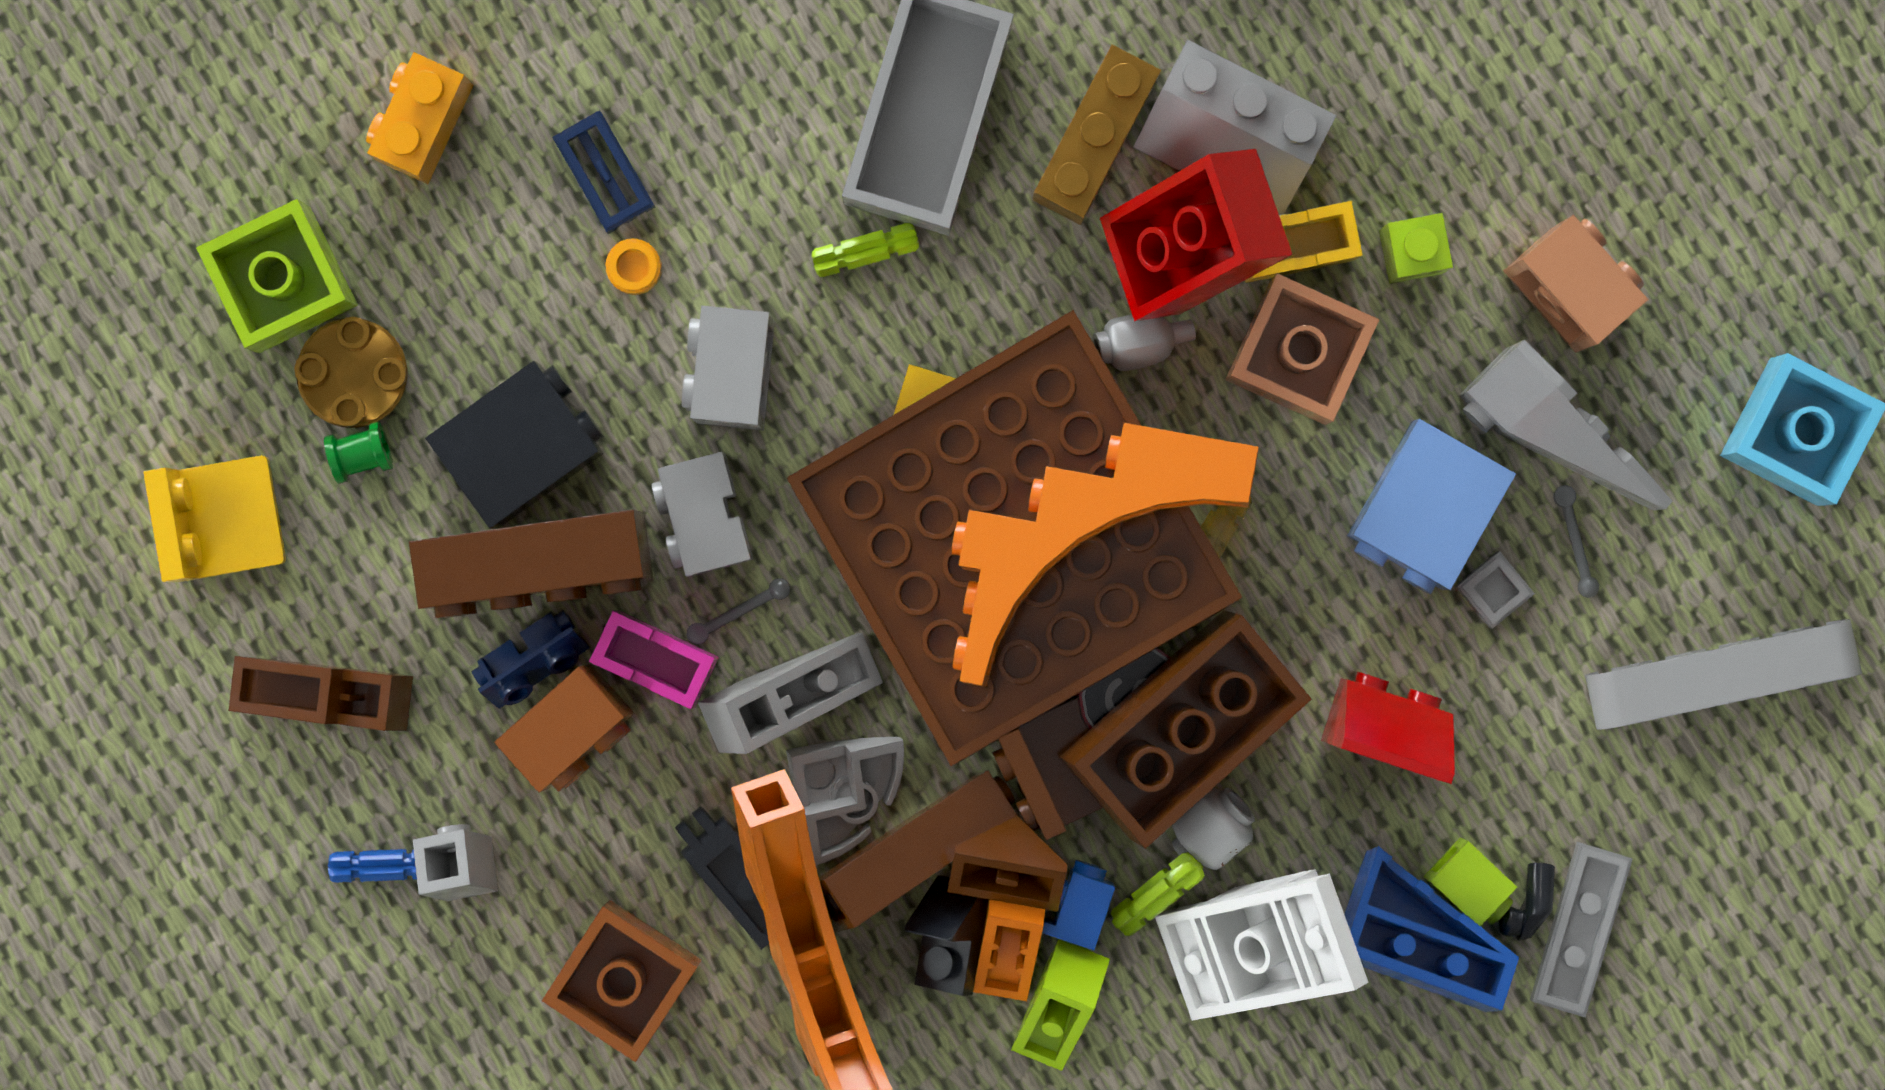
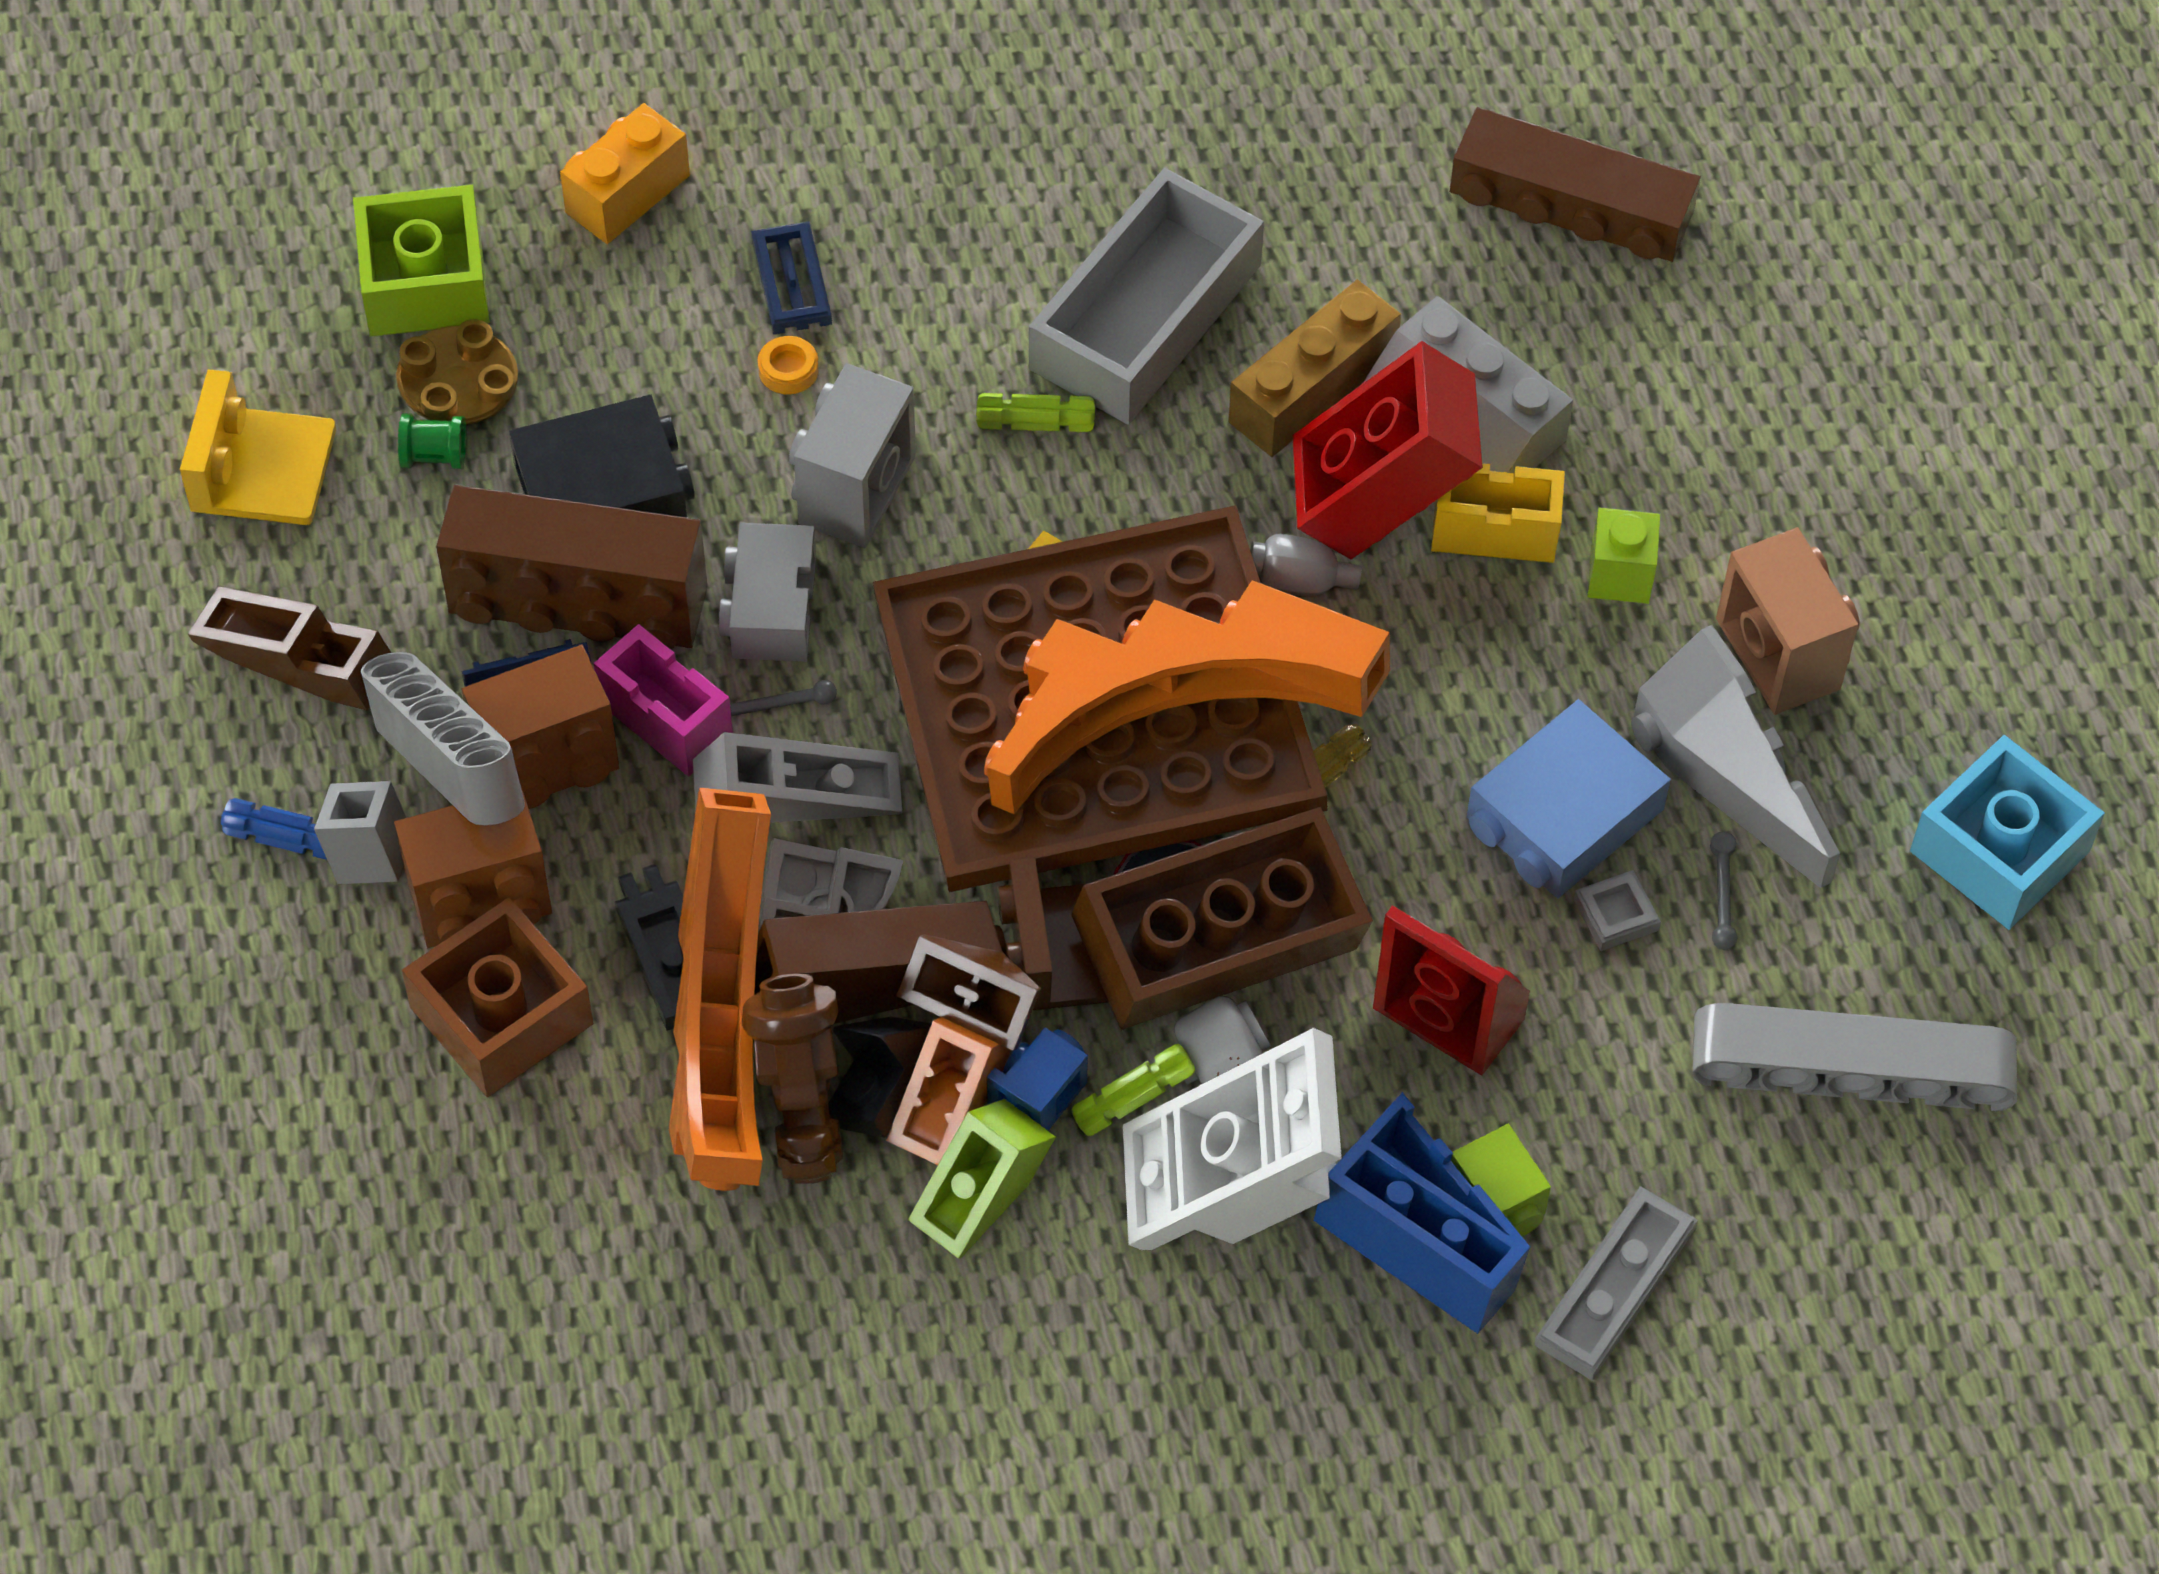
camera: 15 degrees right, 30 degrees down
(442, 734) = (443, 738): none -> light grey beam
(560, 876) = (469, 868): none -> dark orange brick
(884, 978) = (797, 1059): none -> reddish brown animal
(1302, 349) = (1470, 608): nougat brick -> none
(1536, 906) = (1570, 1235): black arm -> none

